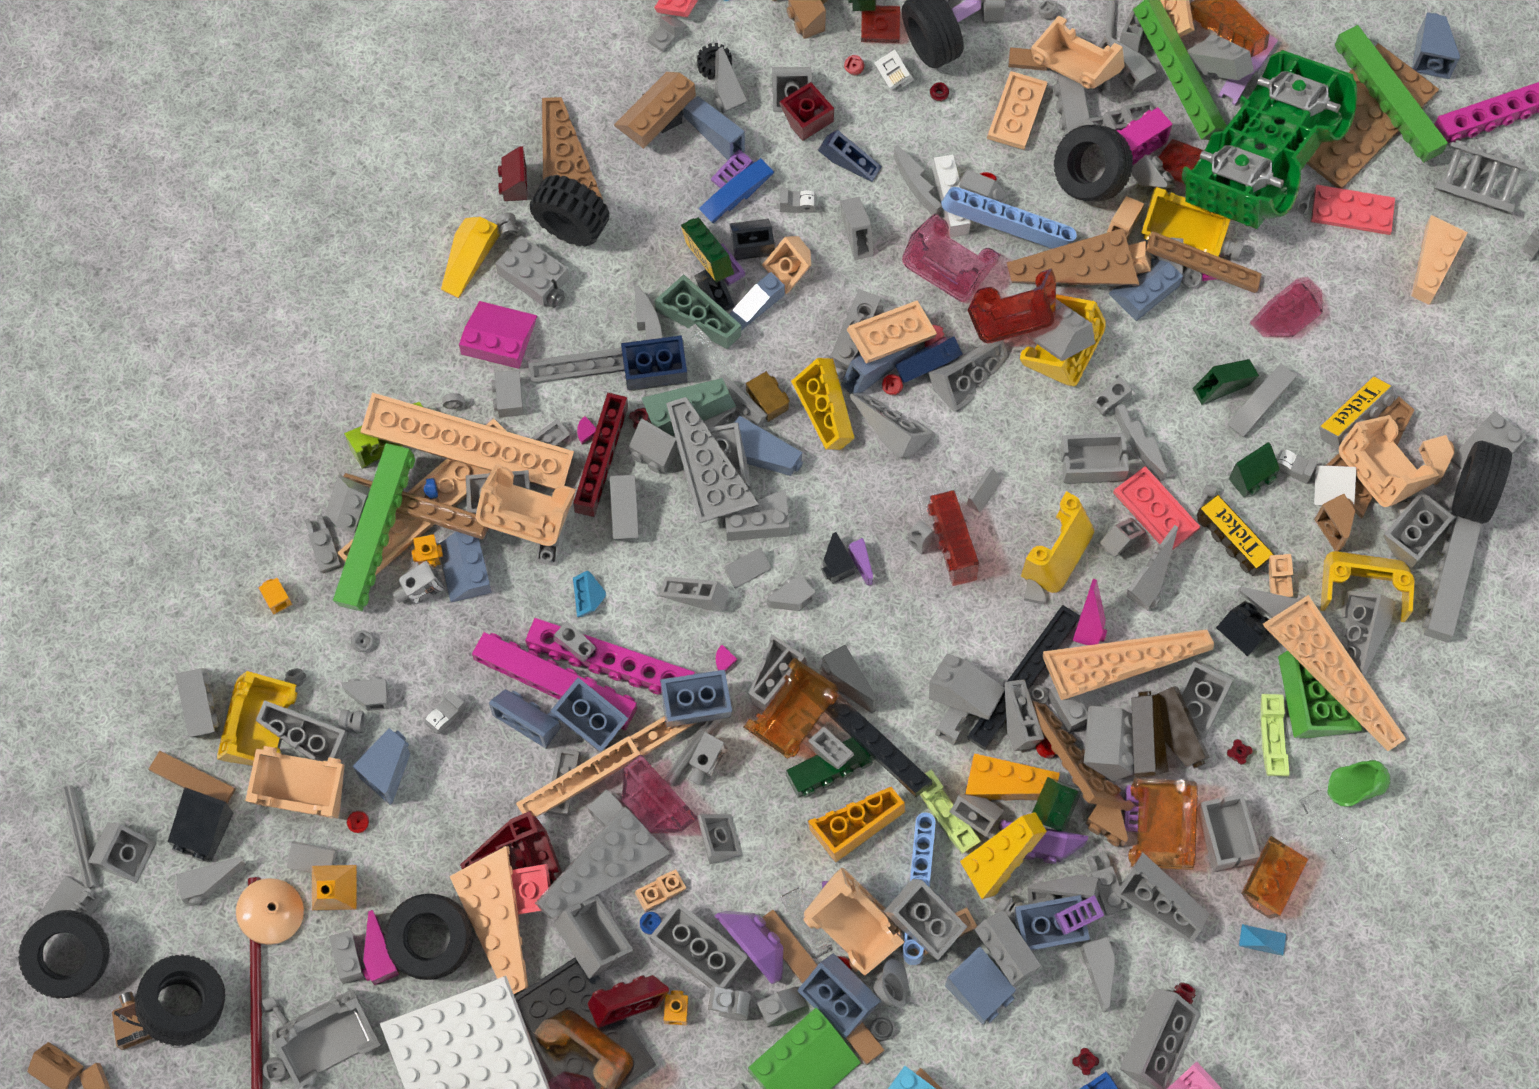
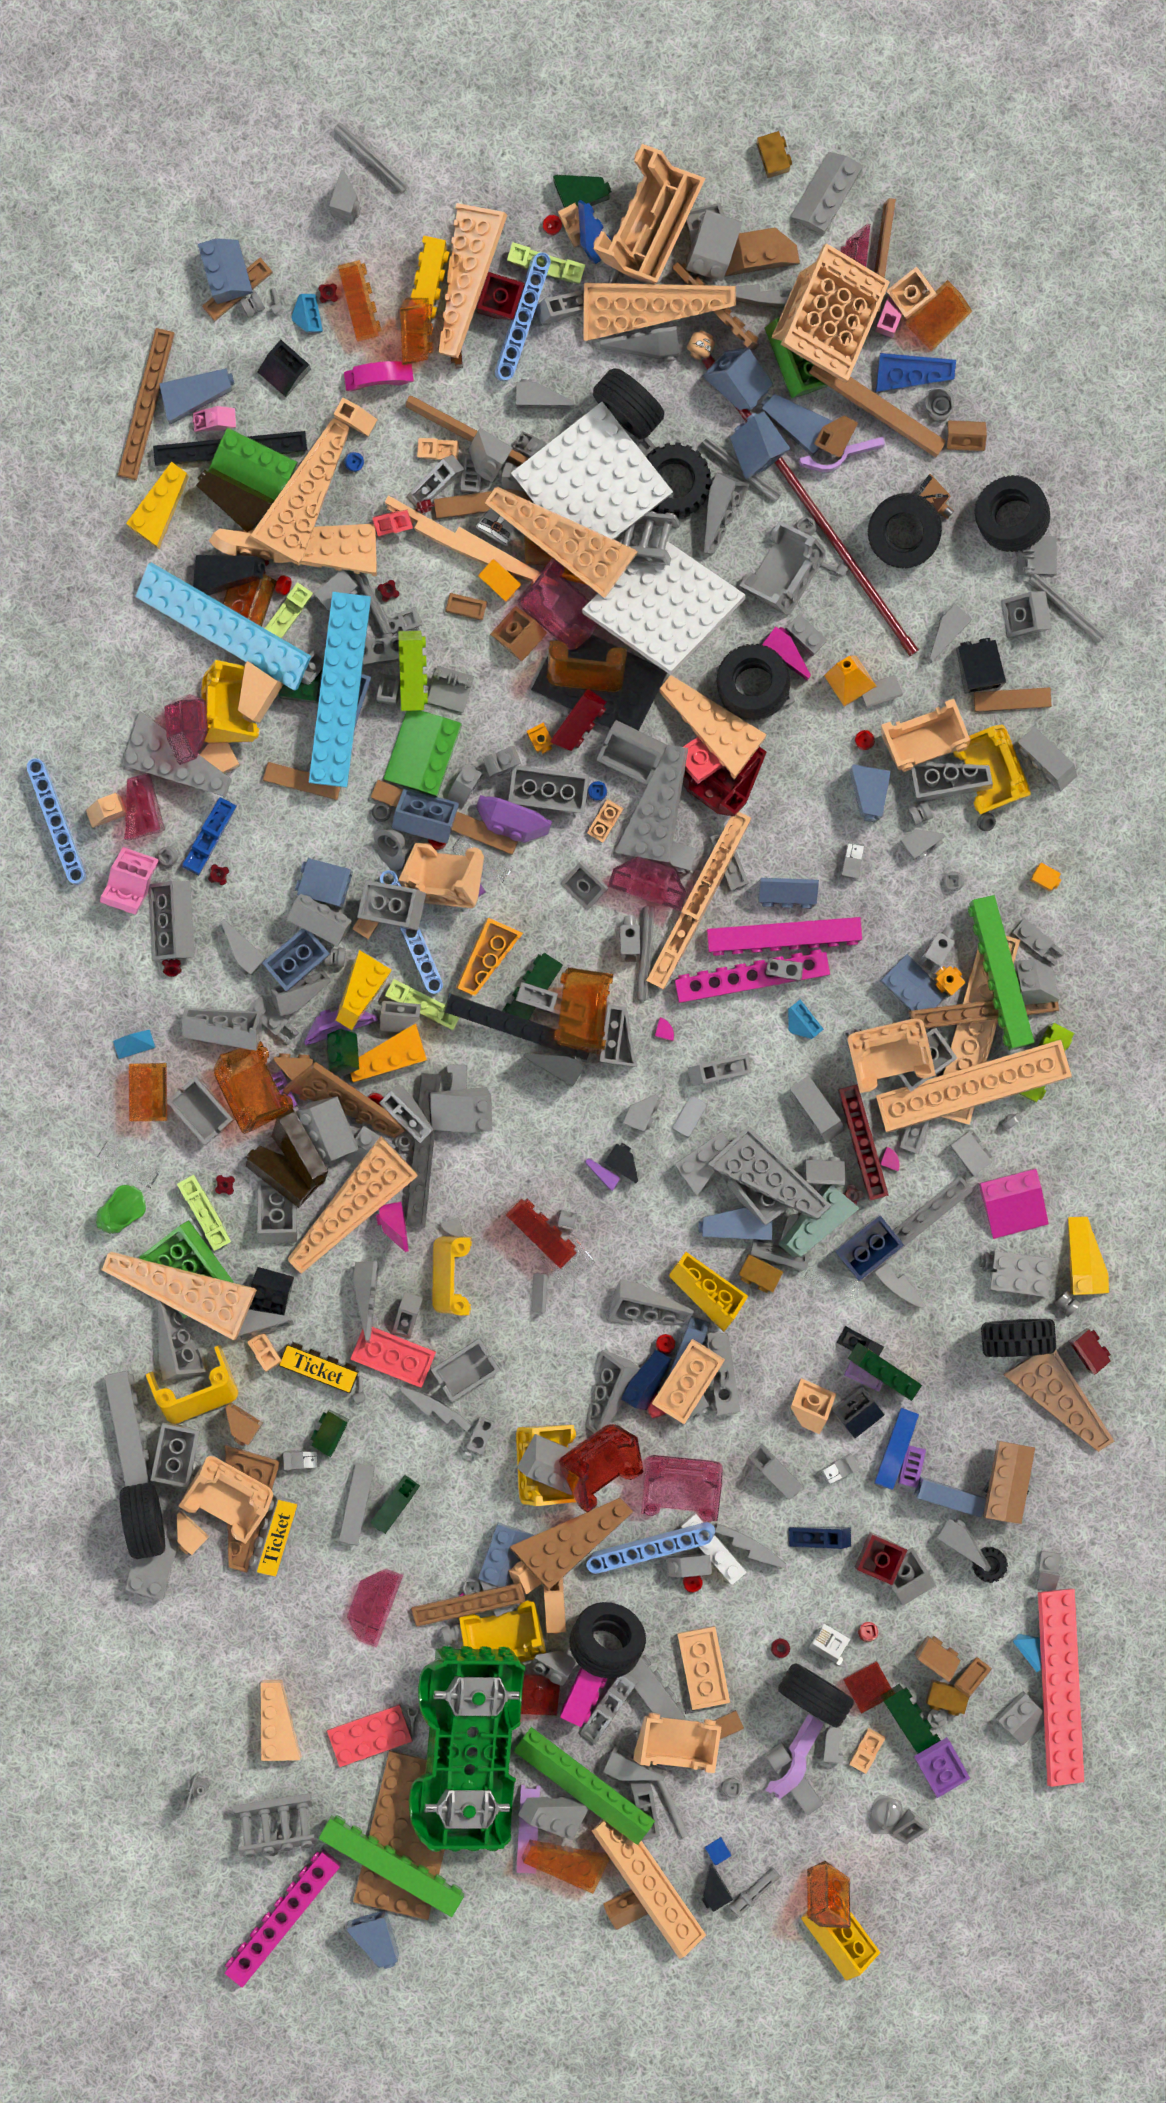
camera: 150 degrees right, 20 degrees up
(265, 925) = (898, 630): light nougat dish -> none
(430, 488) = (979, 1032): blue tile -> none
(589, 715) = (738, 916): sand blue slope -> none
(690, 306) = (867, 1315): sand green wedge -> none
(695, 698) = (663, 976): sand blue slope -> none
(758, 300) = (819, 1353): sand blue slope -> none
(1063, 922) = (287, 973): medium lavender slope -> none
(1333, 482) = (260, 1458): white sticker -> none

